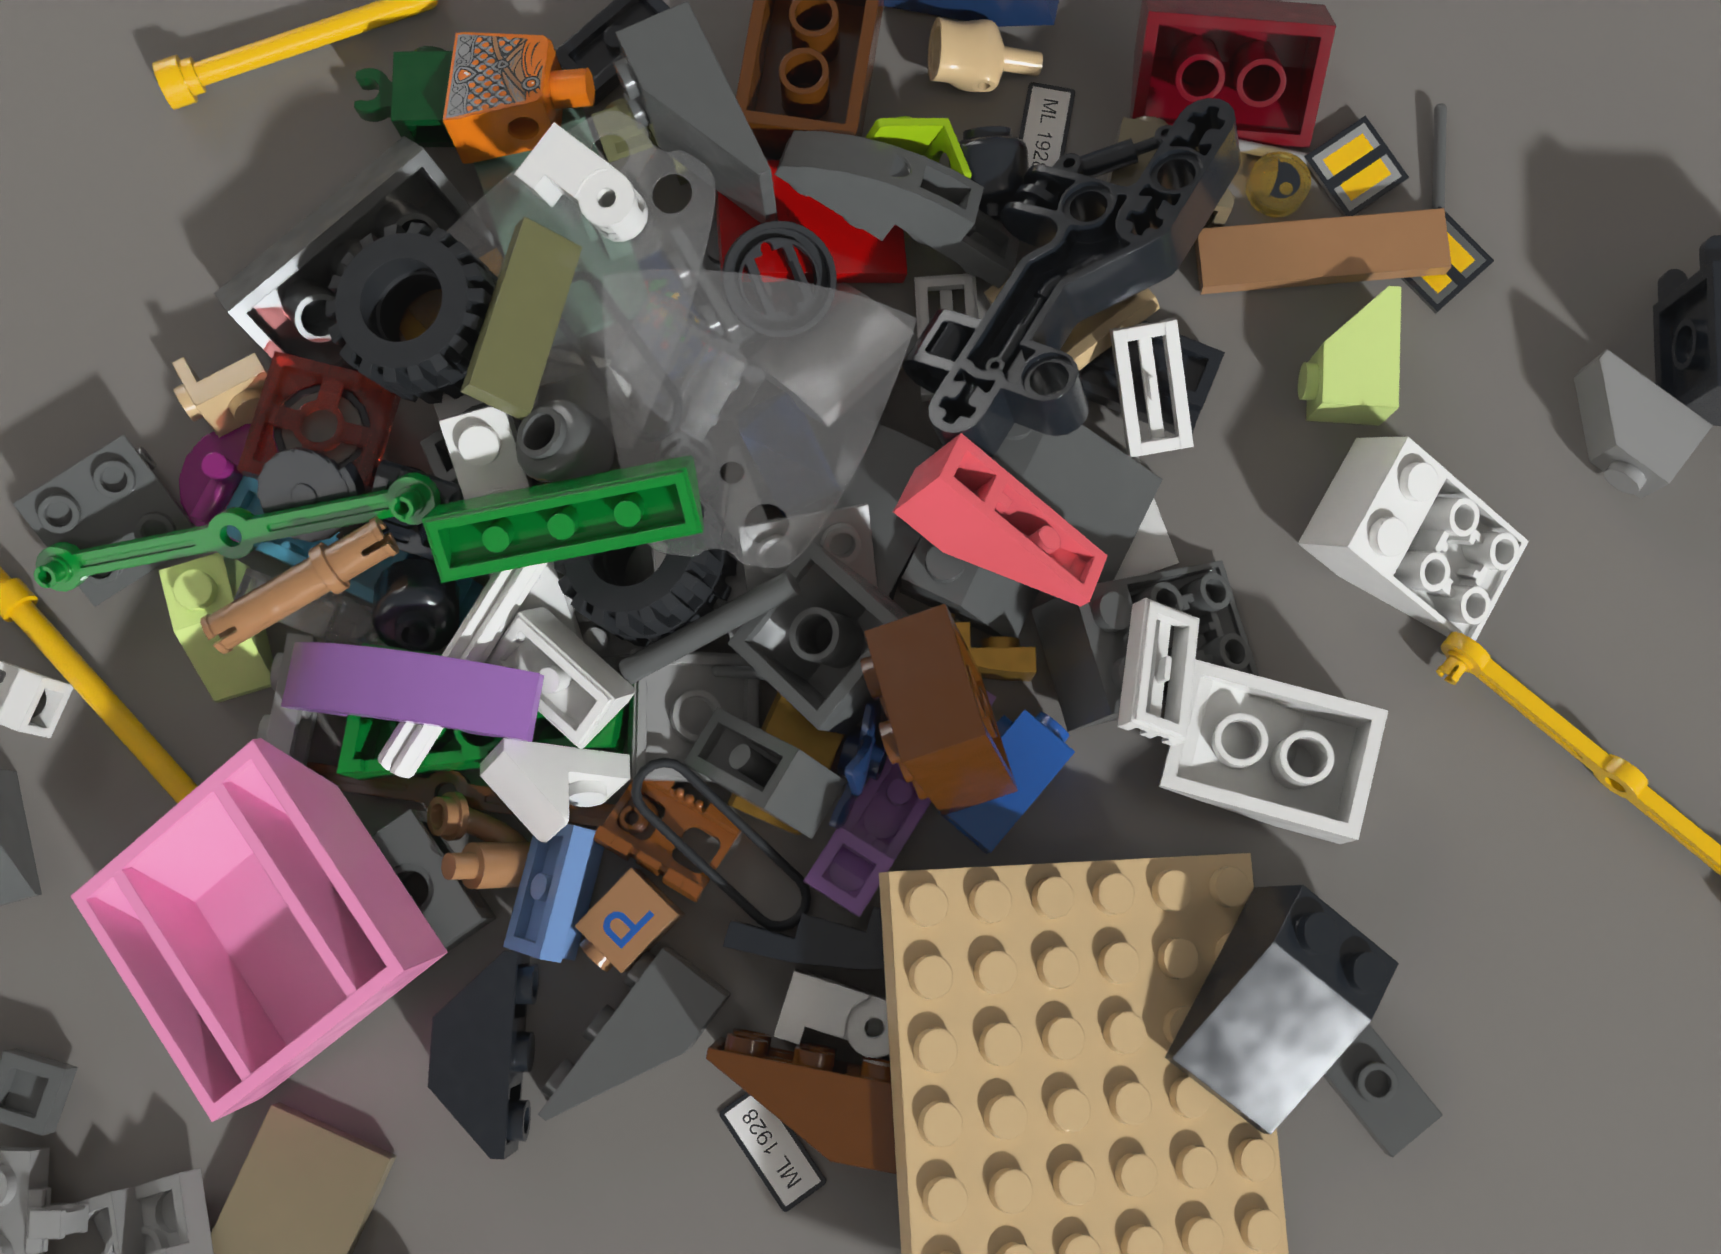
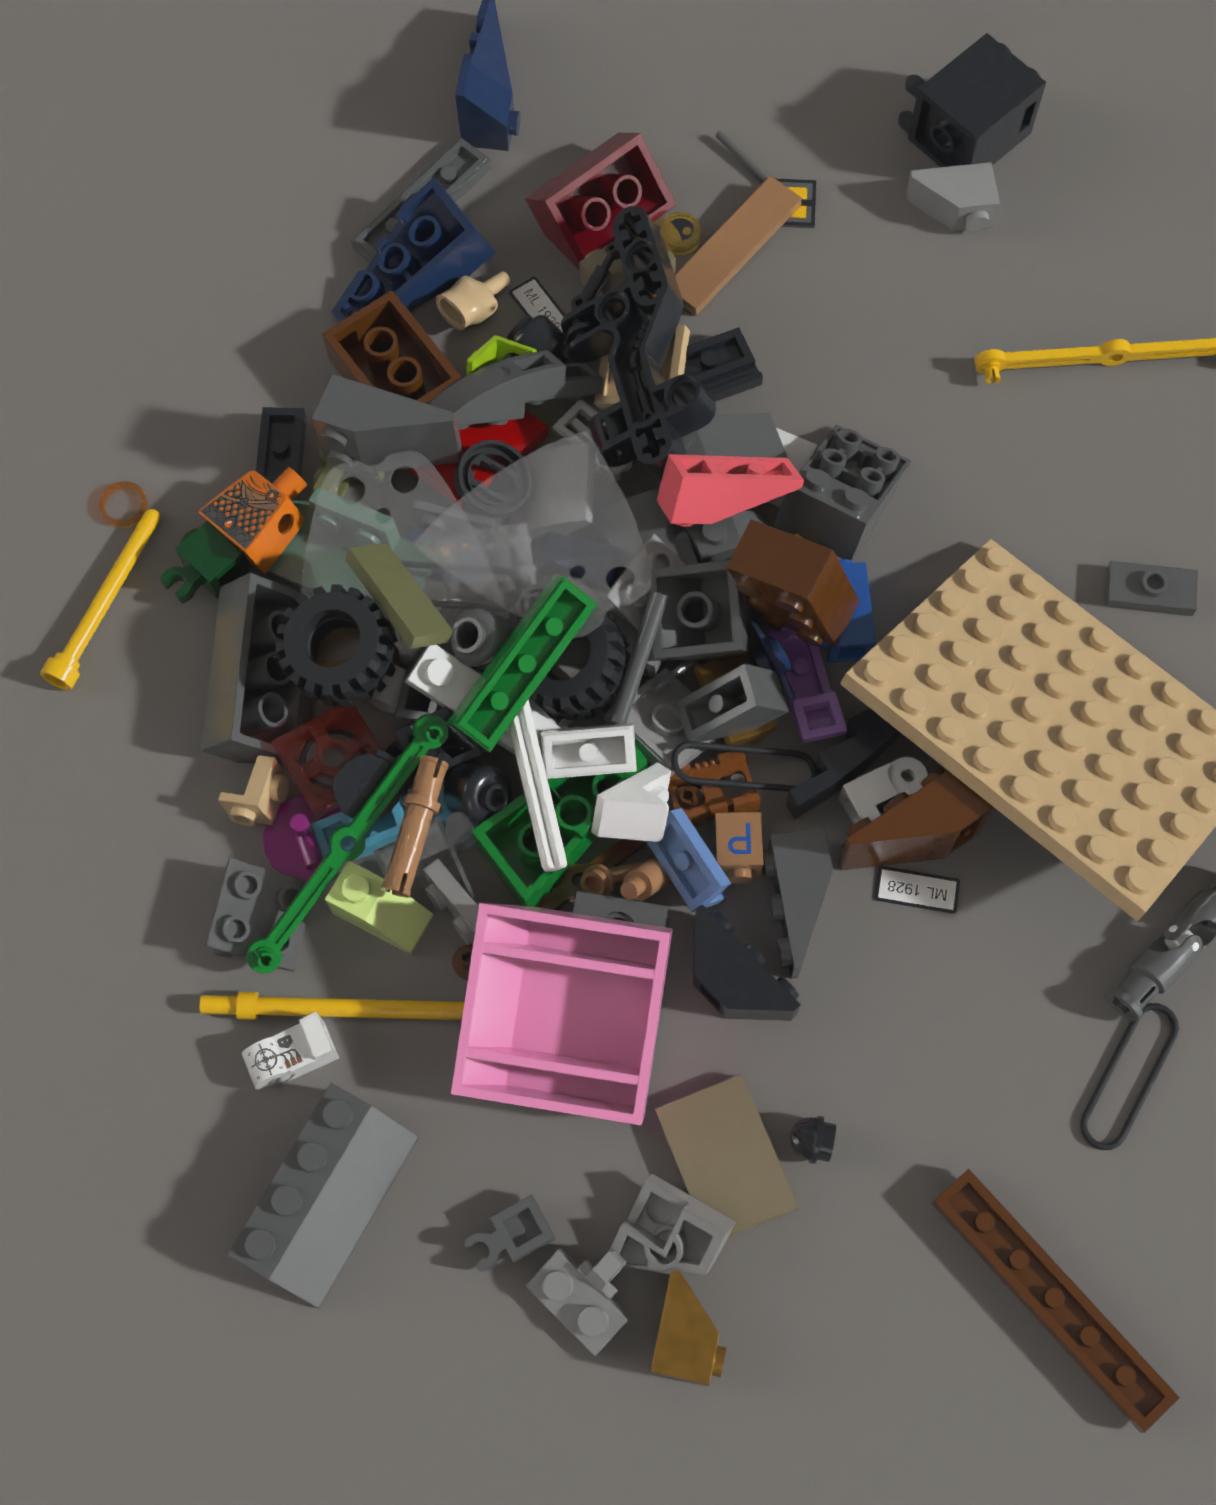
camera: 45 degrees left, 10 degrees down
(413, 689) = (520, 820): medium lavender slope -> none
(570, 168) = (359, 508): white leg -> none
(1142, 333) = (712, 379): white tile -> none
(1150, 666) = (867, 485): white tile -> none
(1277, 753) = (956, 477): white slope -> none
(1280, 1004) = (1076, 581): slope -> none
(1350, 166) = (705, 196): piece -> none
(1357, 367) = (807, 280): yellowish green slope -> none
(1413, 536) = (910, 331): white slope -> none

